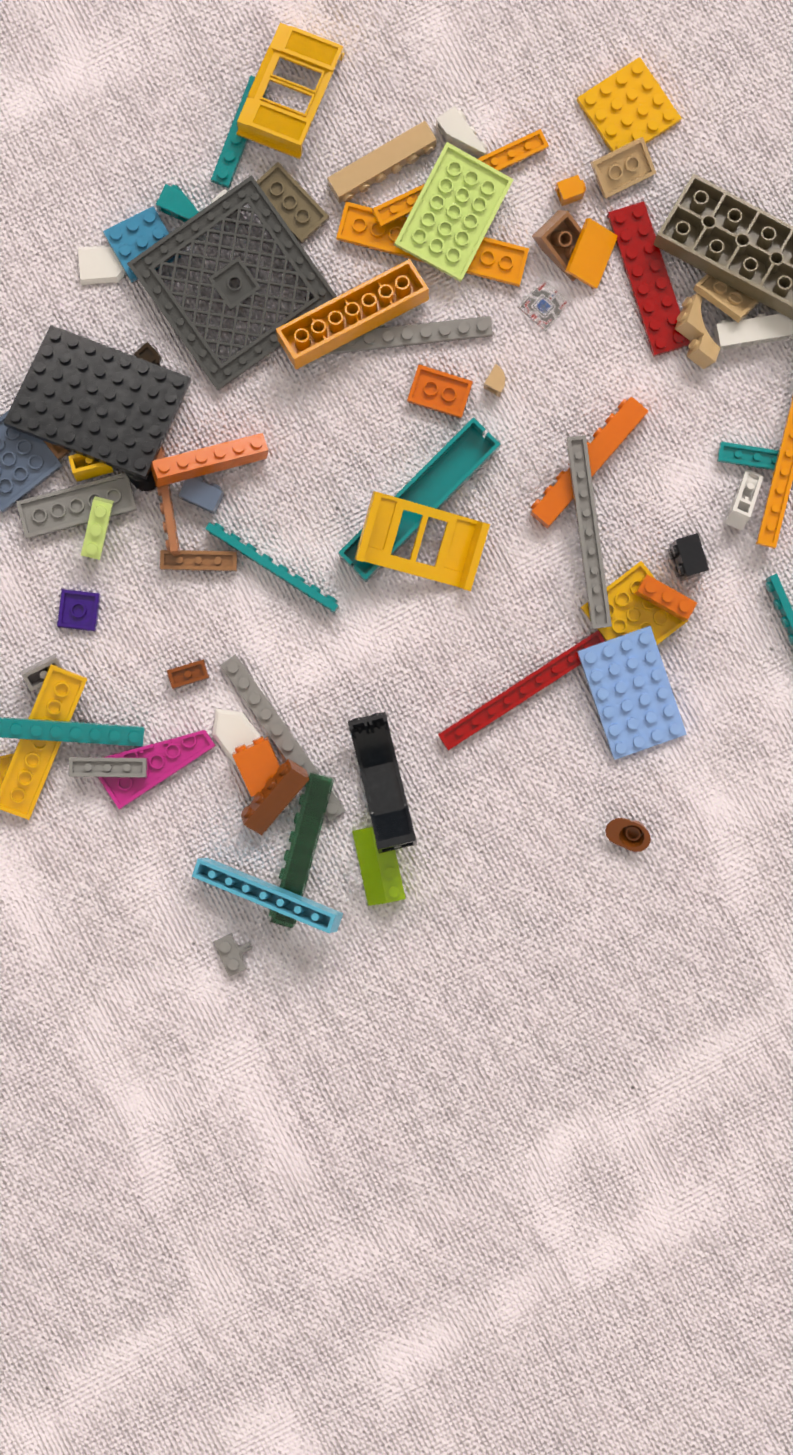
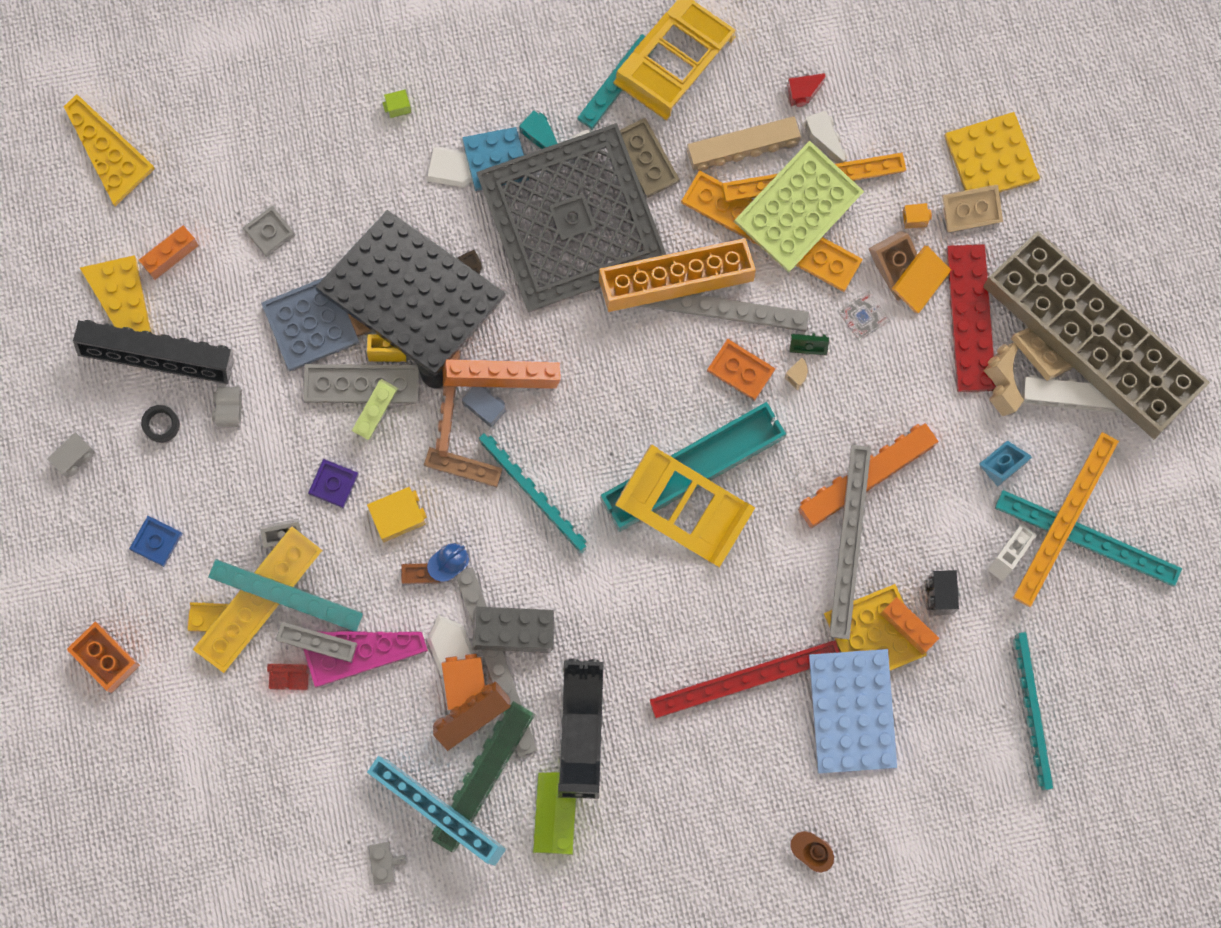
camera: 15 degrees right, 10 degrees down
(28, 214) = (397, 103): none -> lime brick
(91, 806) = (288, 676): none -> clear red panel
(148, 623) = (397, 514): none -> yellow brick
(210, 656) = (448, 562): none -> blue piece
(291, 704) = (513, 629): none -> dark grey brick
(426, 89) = (804, 88): none -> red slope
(499, 348) = (809, 344): none -> dark green plate
(716, 414) = (1004, 462): none -> dark azure slope

